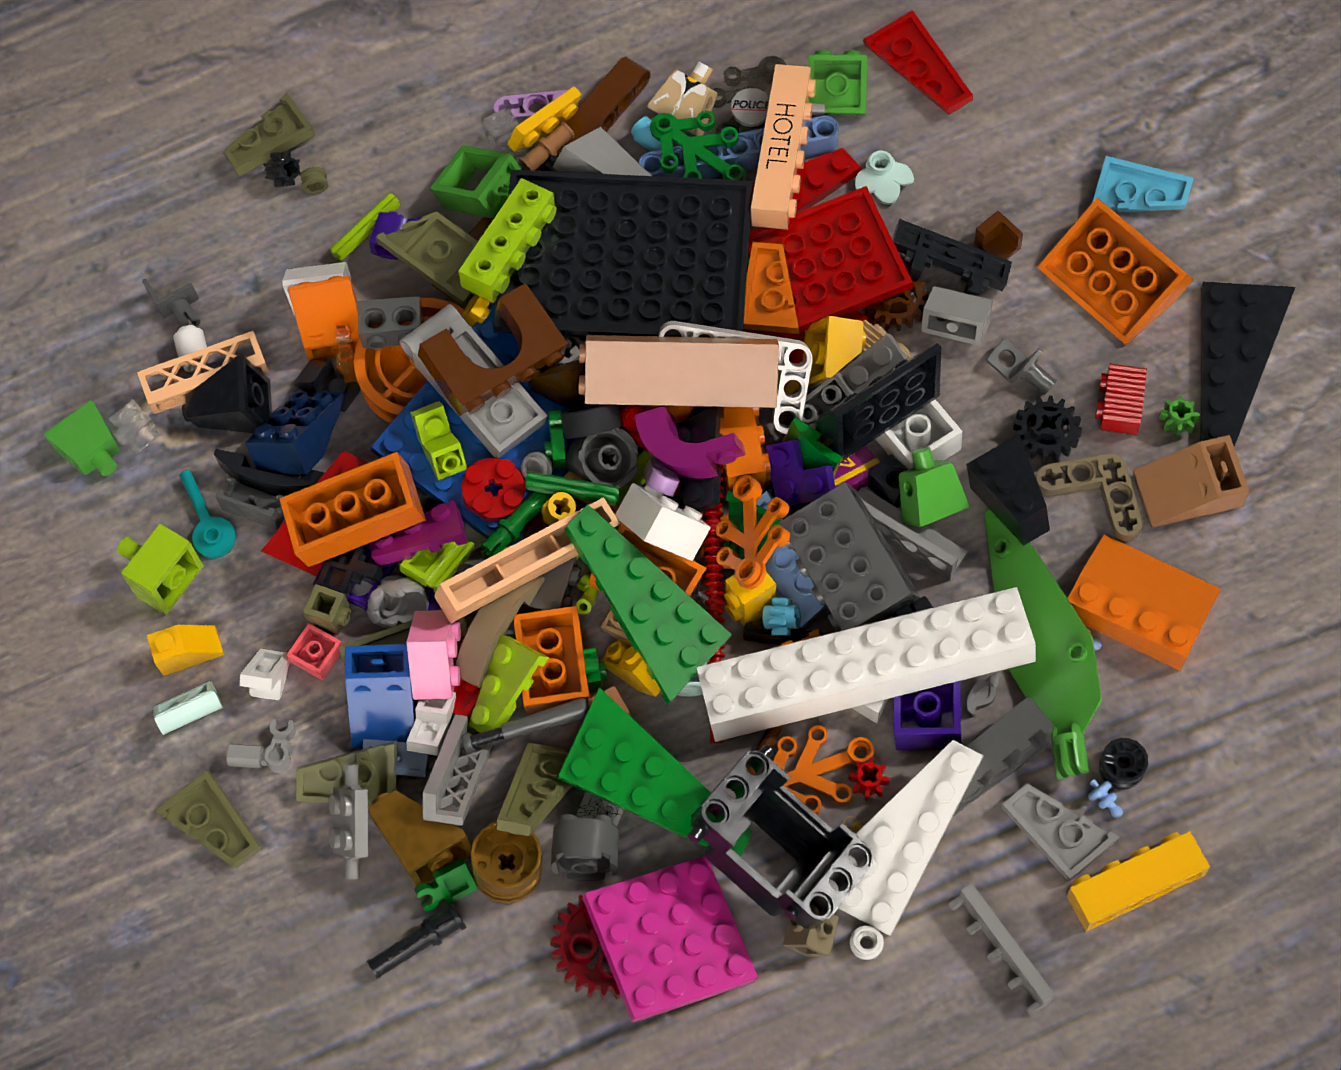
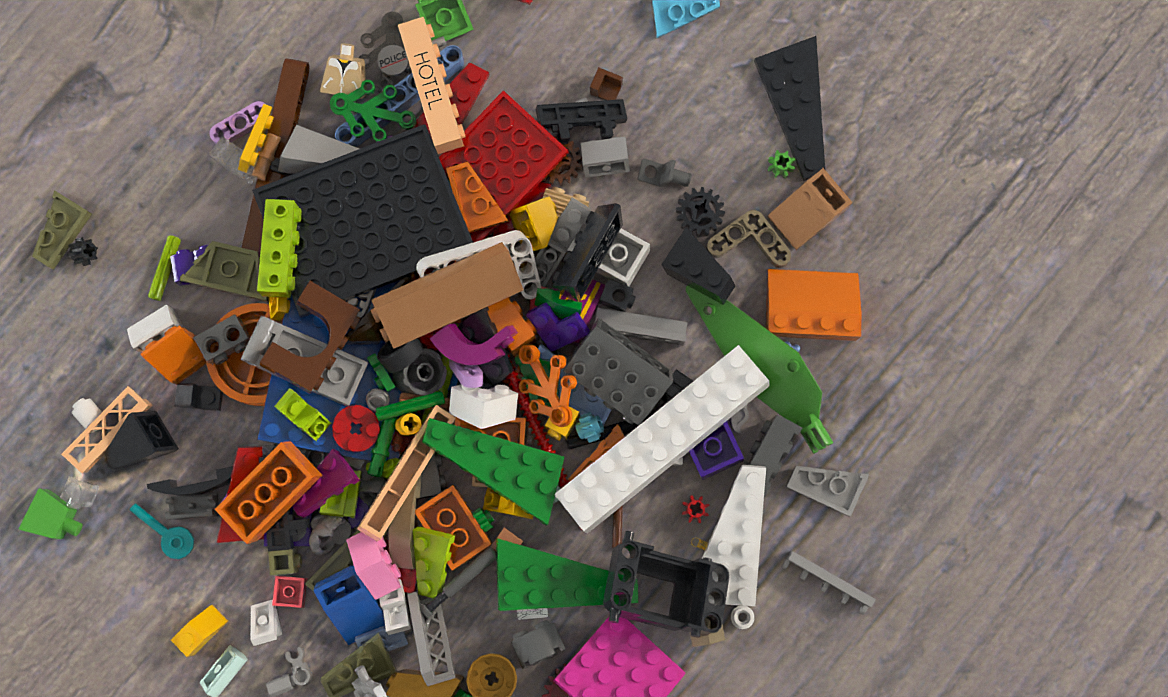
camera: 30 degrees left, 15 degrees up
(160, 567) = (153, 587): lime brick -> none
(176, 303) = (60, 386): dark grey bracket -> none
(296, 433) = (197, 445): dark blue slope -> none
(314, 180) = (109, 249): olive bush -> none
(345, 359) = (203, 376): clear orange plate -> none
(485, 199) = (242, 215): bright green window -> none
(533, 789) = (486, 623): olive wing -> none
(588, 597) = (453, 470): lime arm -> none
(643, 136) = (326, 113): medium azure cone -> none
(809, 773) = (652, 522): orange plant -> none
(884, 181) = (510, 75): light aqua plate -> none
(930, 490) = (646, 294): bright green torso -> none
(1106, 799) = (847, 450): light blue hair -> none
(1114, 272) = (694, 77): orange slope -> none
(1122, 399) = (739, 168): red brick -> none
(1124, 750) = (858, 421): black wheel -> none
(1138, 880) = (892, 497): yellow brick -> none

